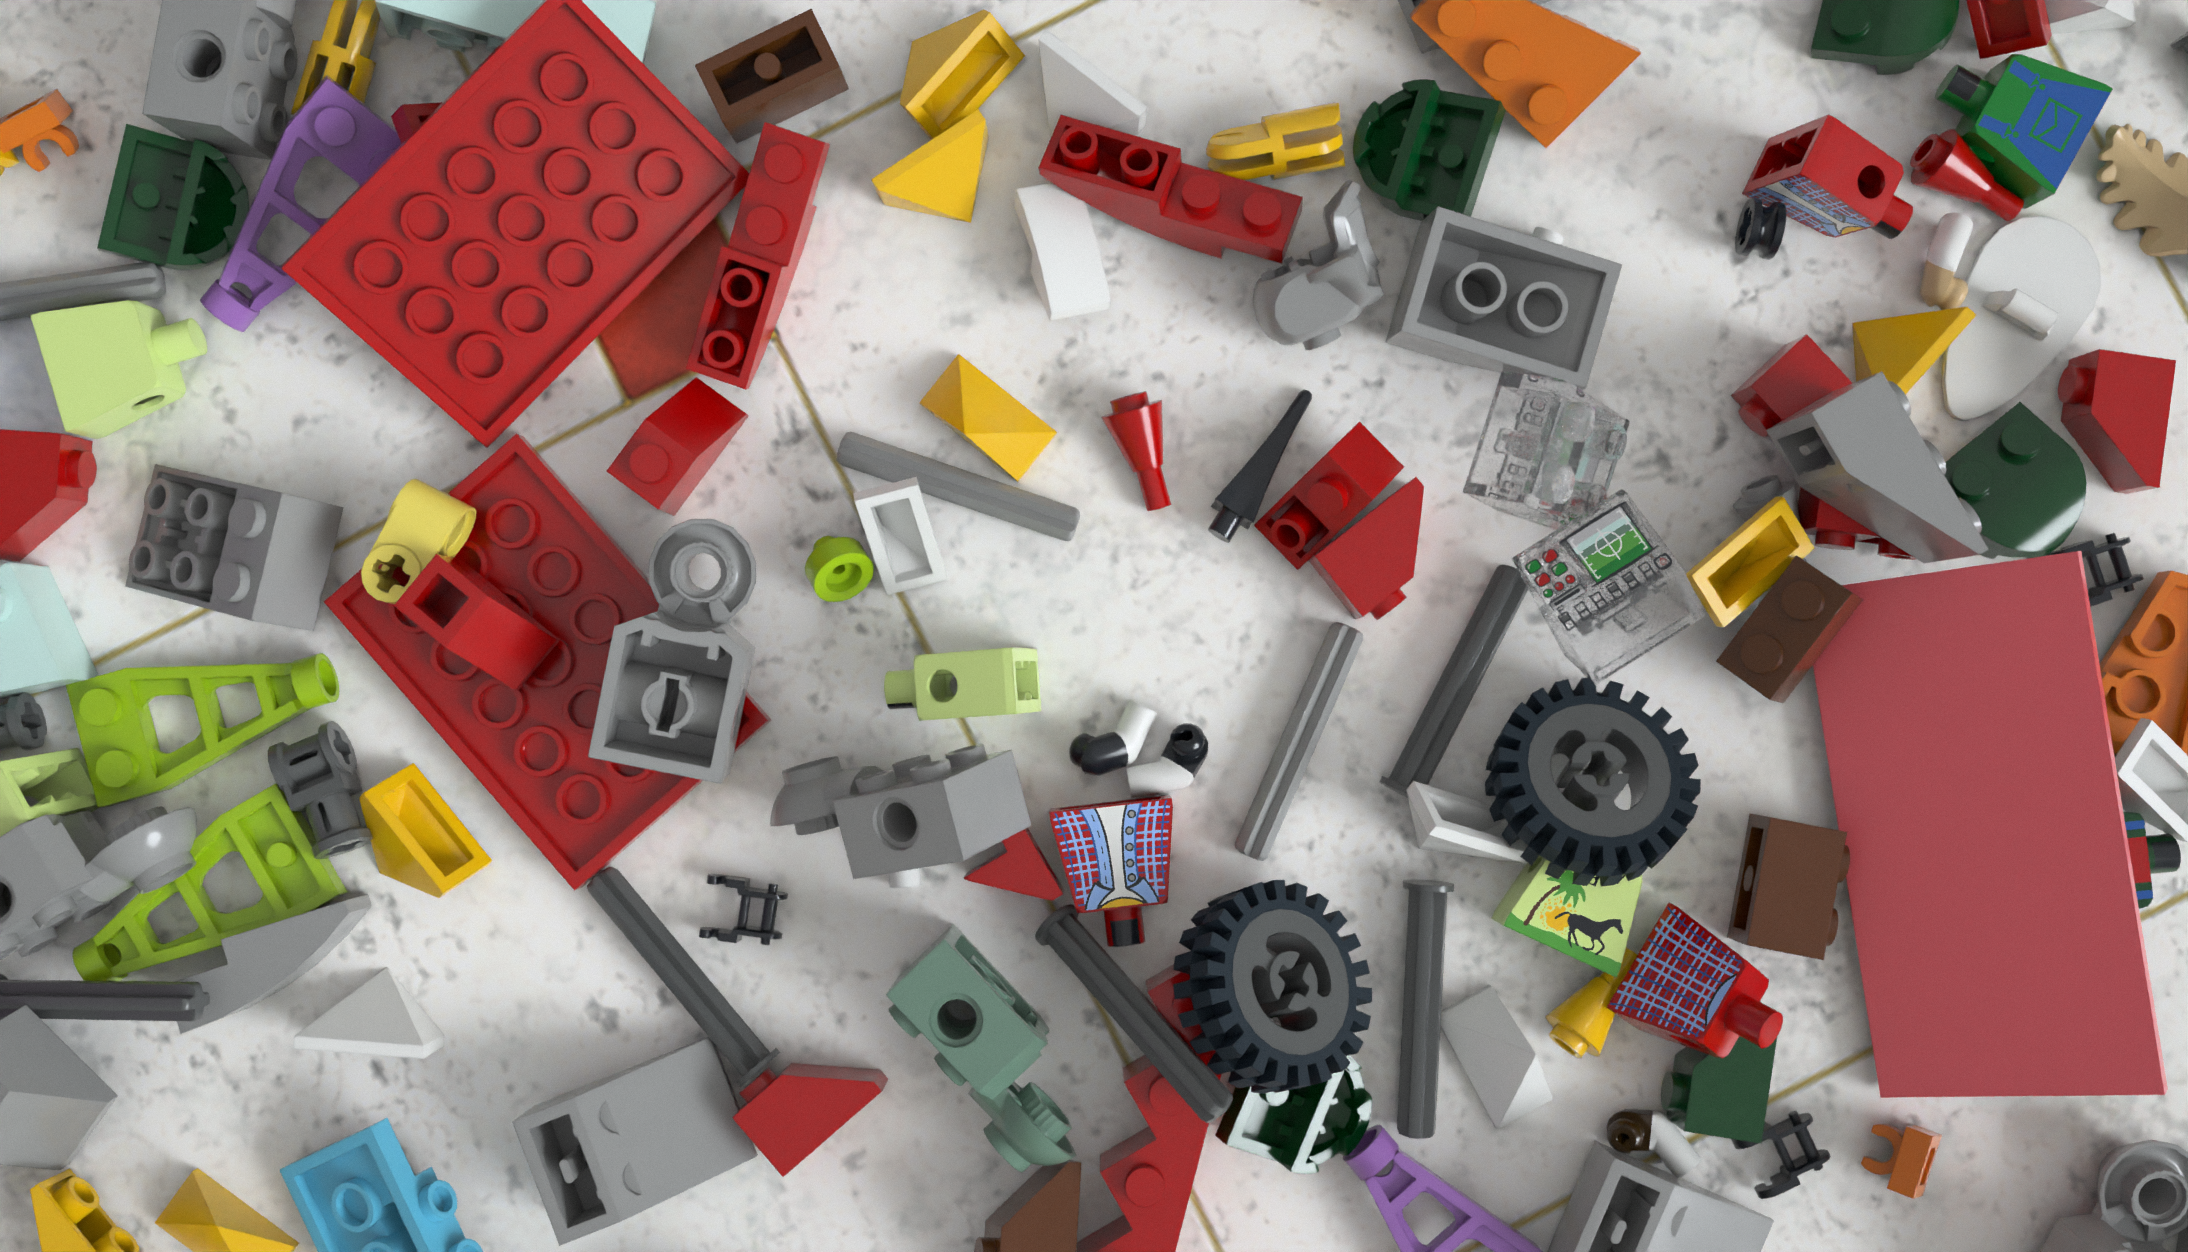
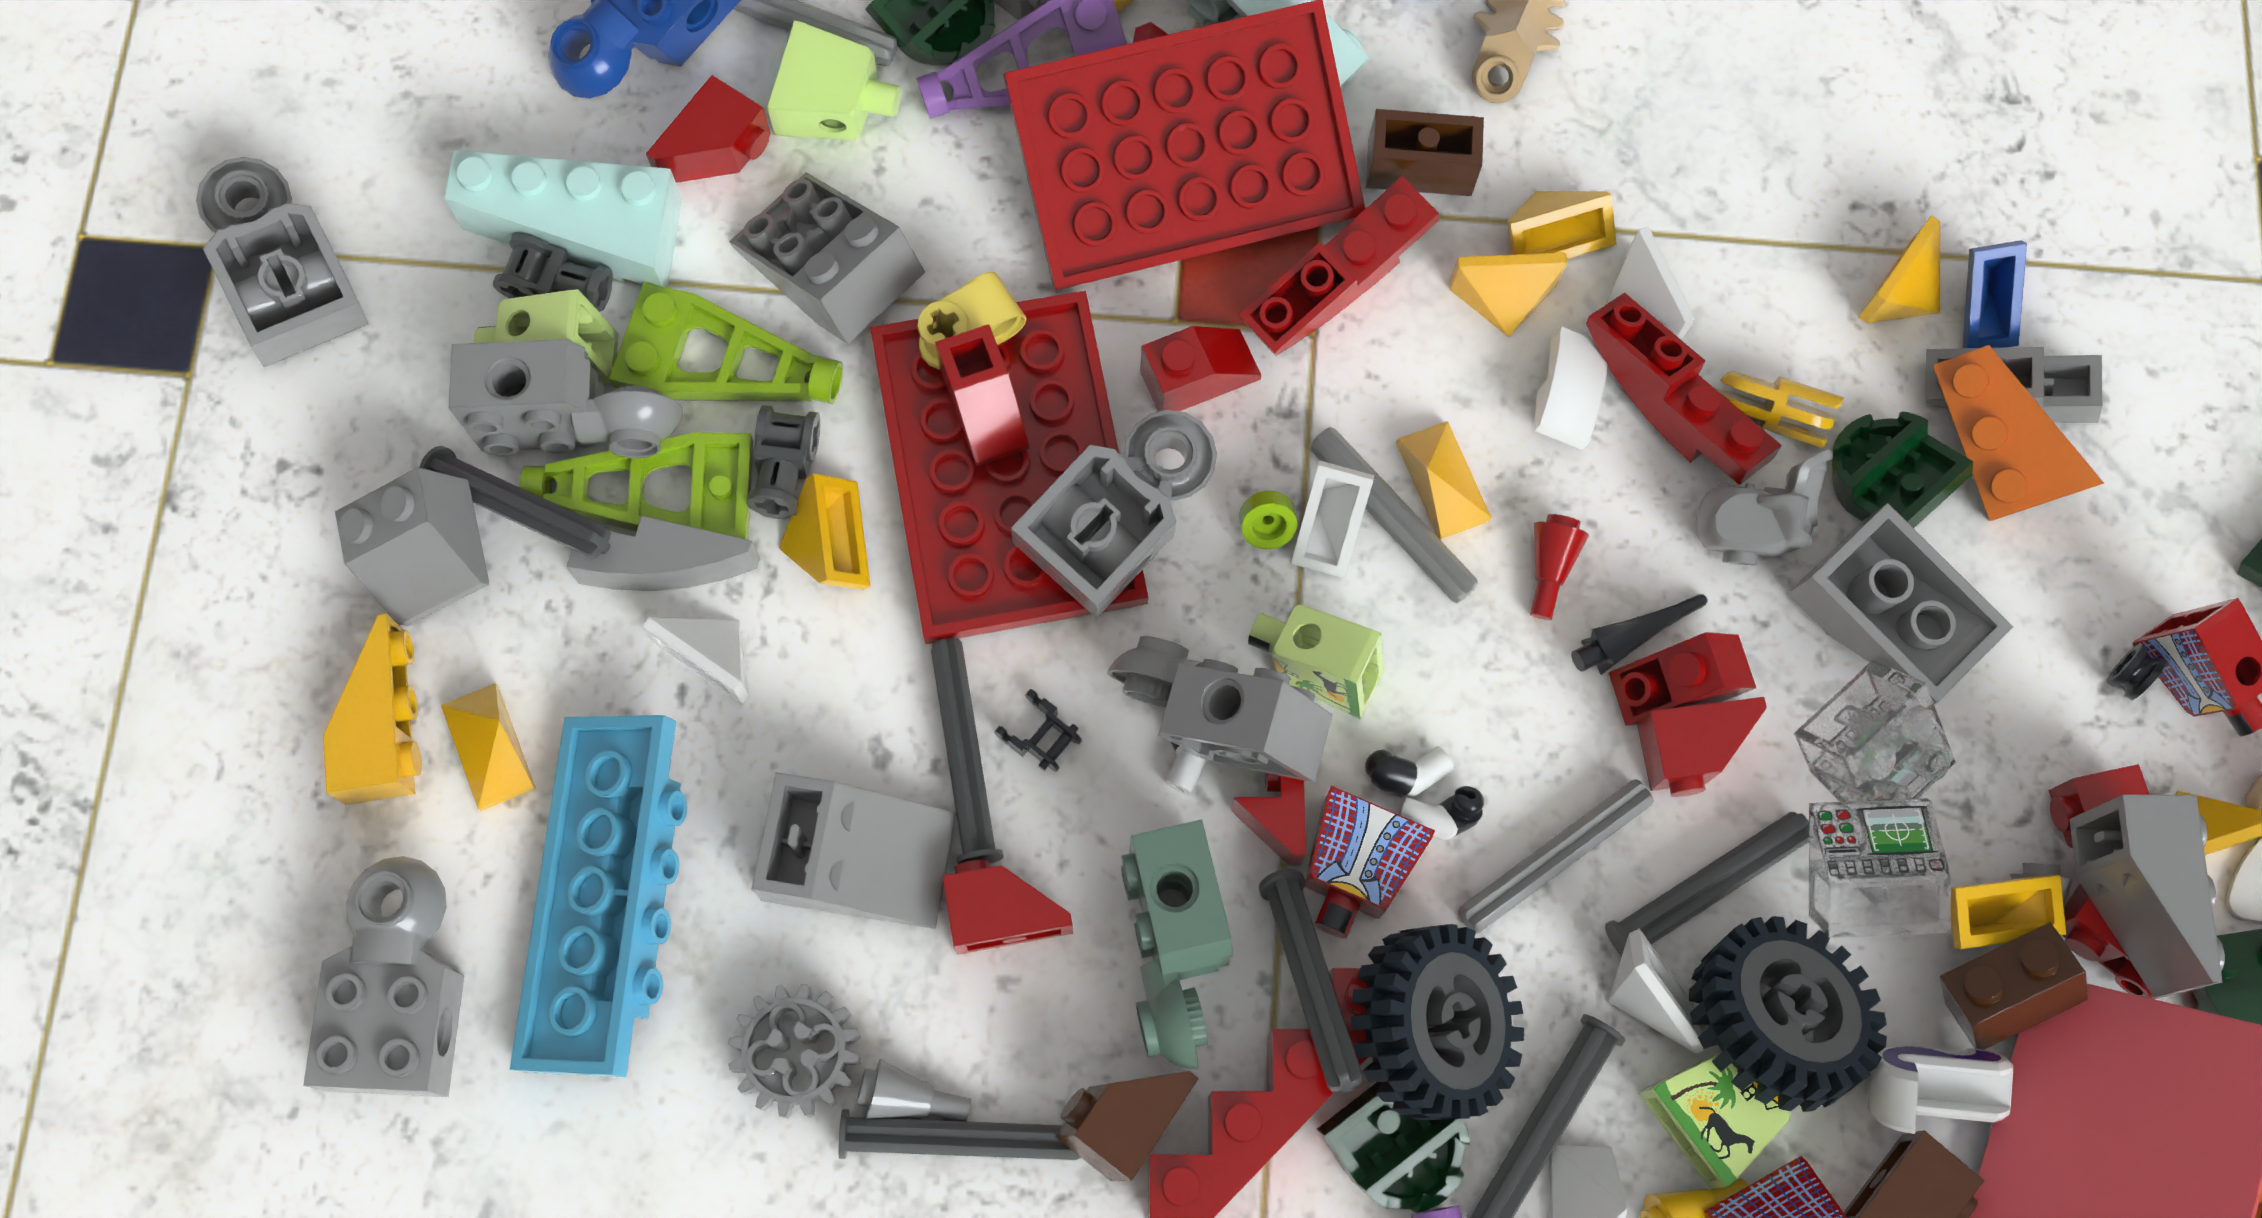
camera: 25 degrees right, 15 degrees down
(1760, 760) = (1939, 1084): none -> white animal

